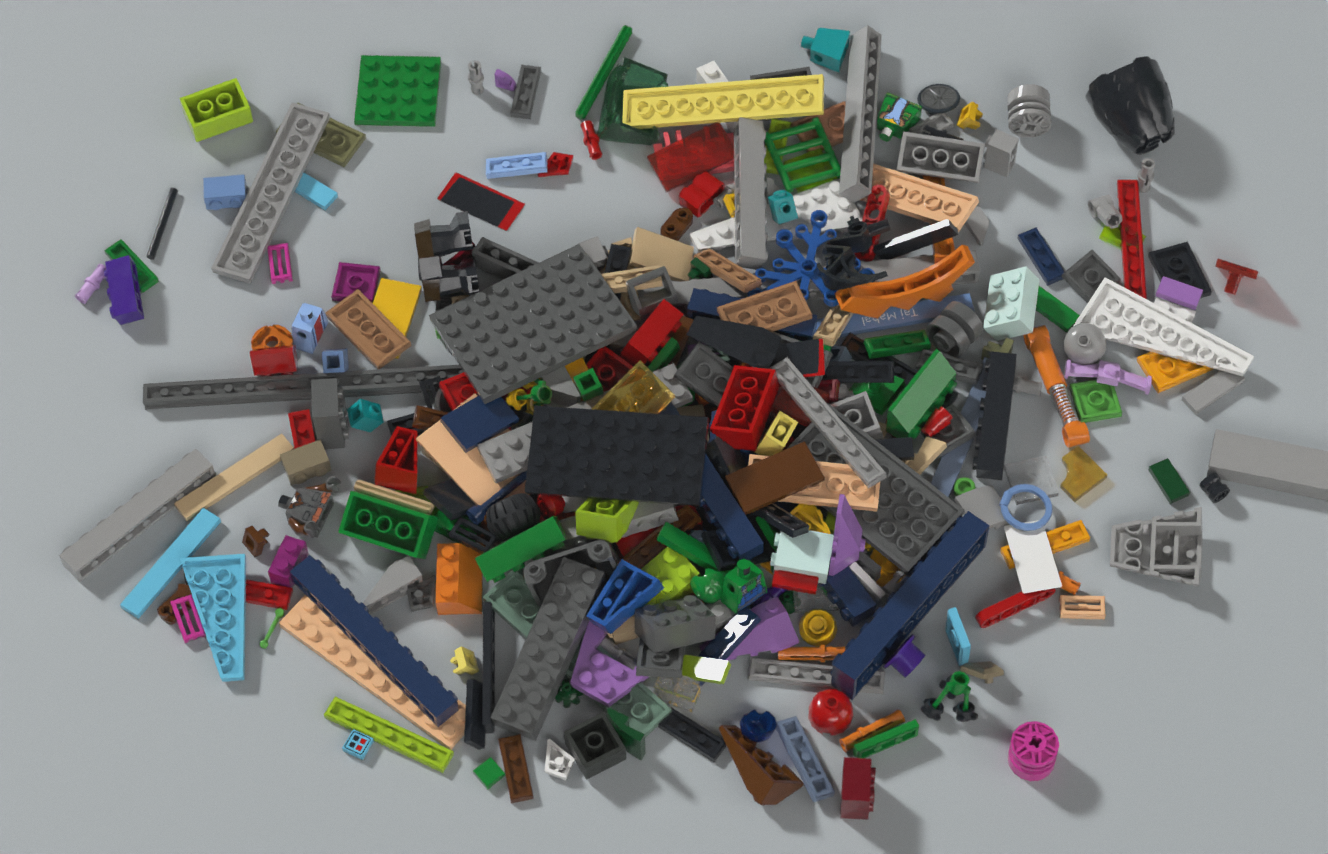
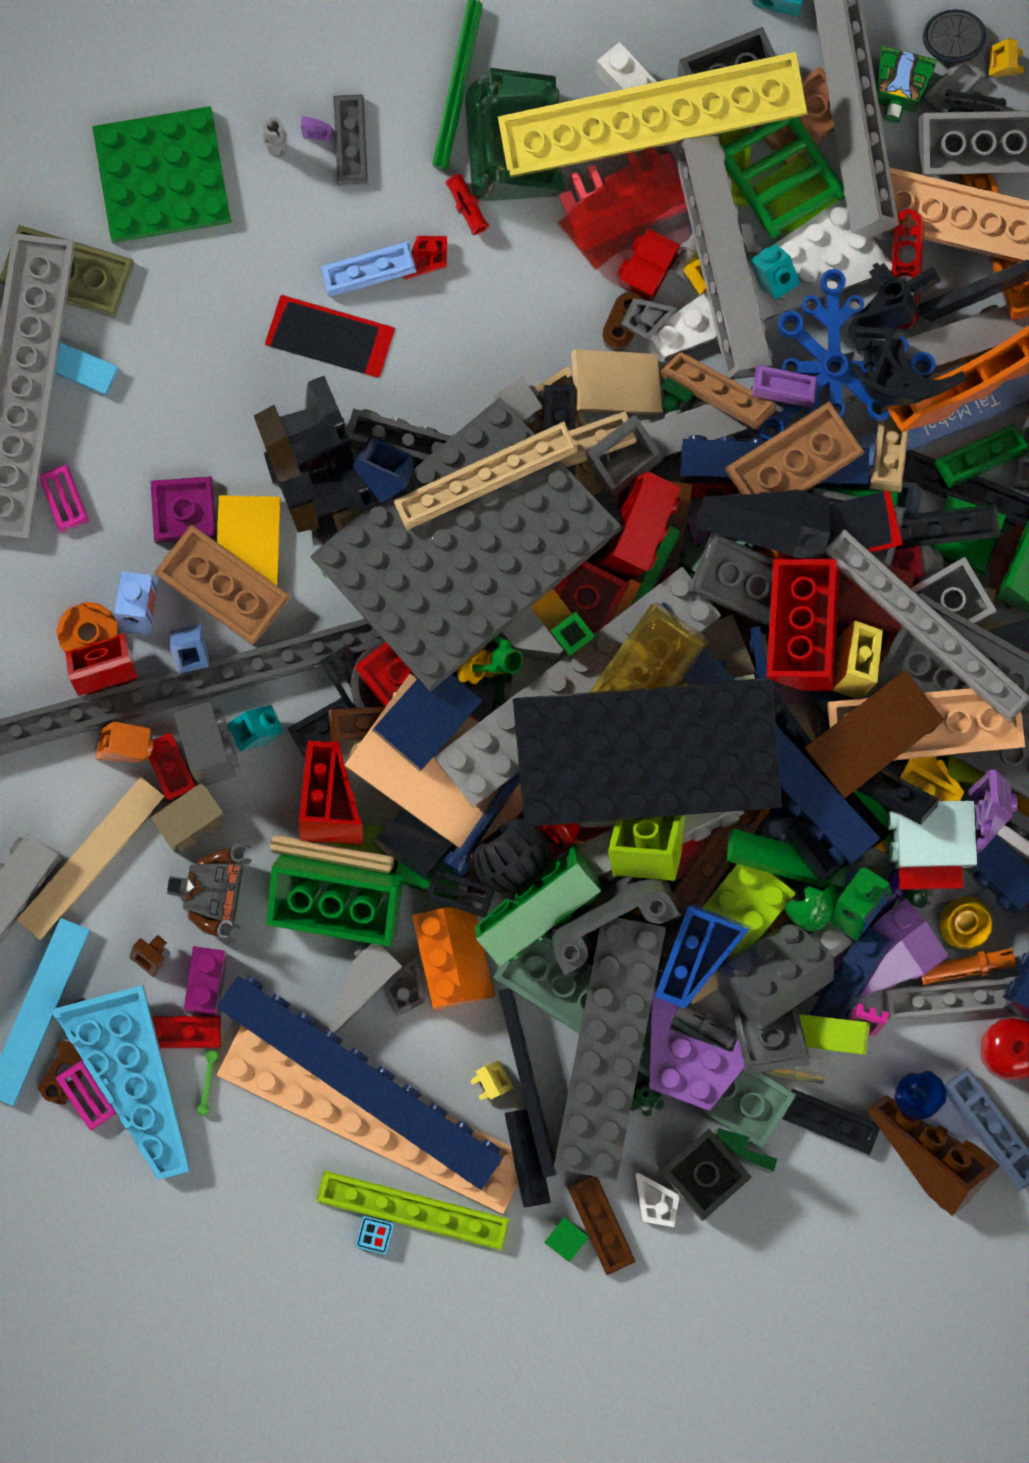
camera: 15 degrees left, 20 degrees up
(276, 407) = (124, 743): none -> orange slope
(490, 270) = (394, 471): none -> dark blue tile
(555, 283) = (485, 475): none -> tan tile
(691, 222) = (646, 317): none -> dark grey piece
(739, 668) = (869, 1016): none -> dark pink tile
(769, 270) = (784, 386): none -> medium lavender tile

